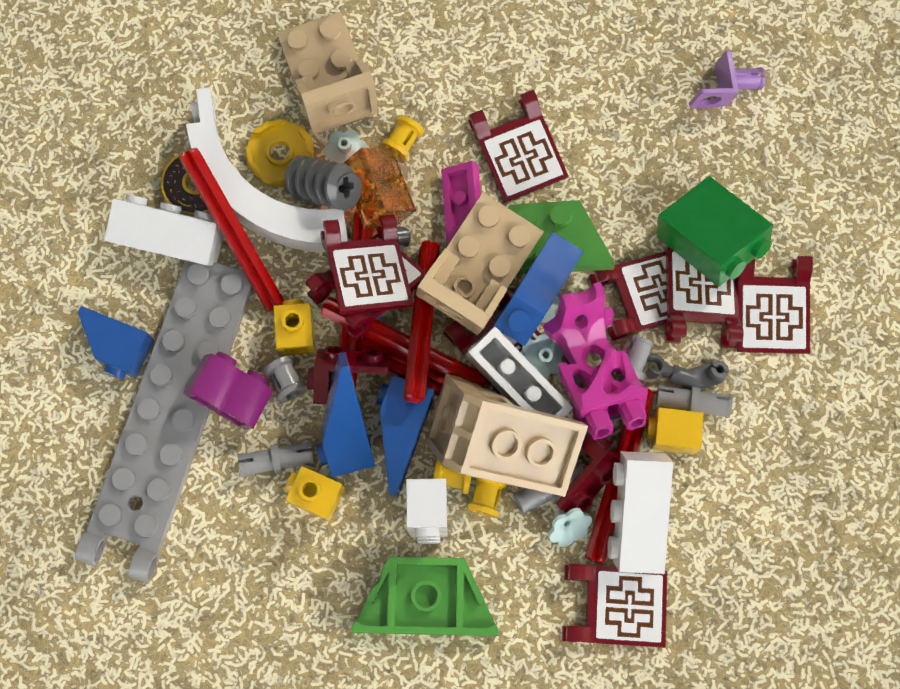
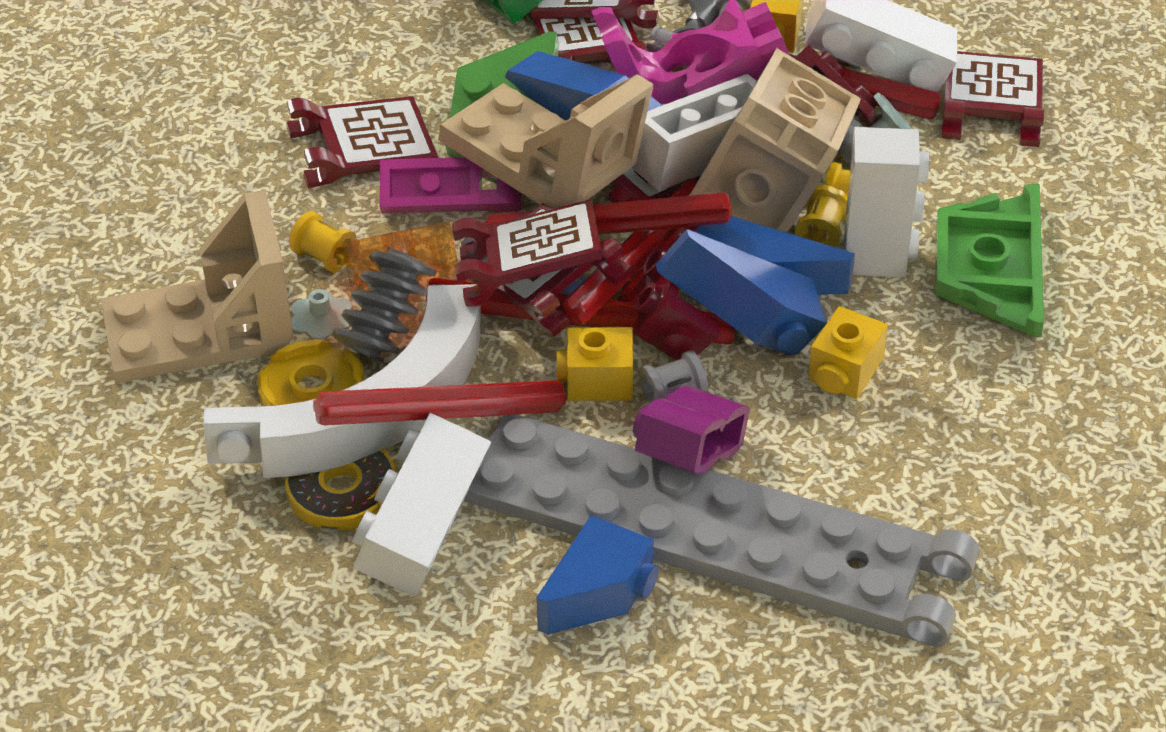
camera: 85 degrees left, 30 degrees down
(275, 459) = (793, 399): light grey pin -> none

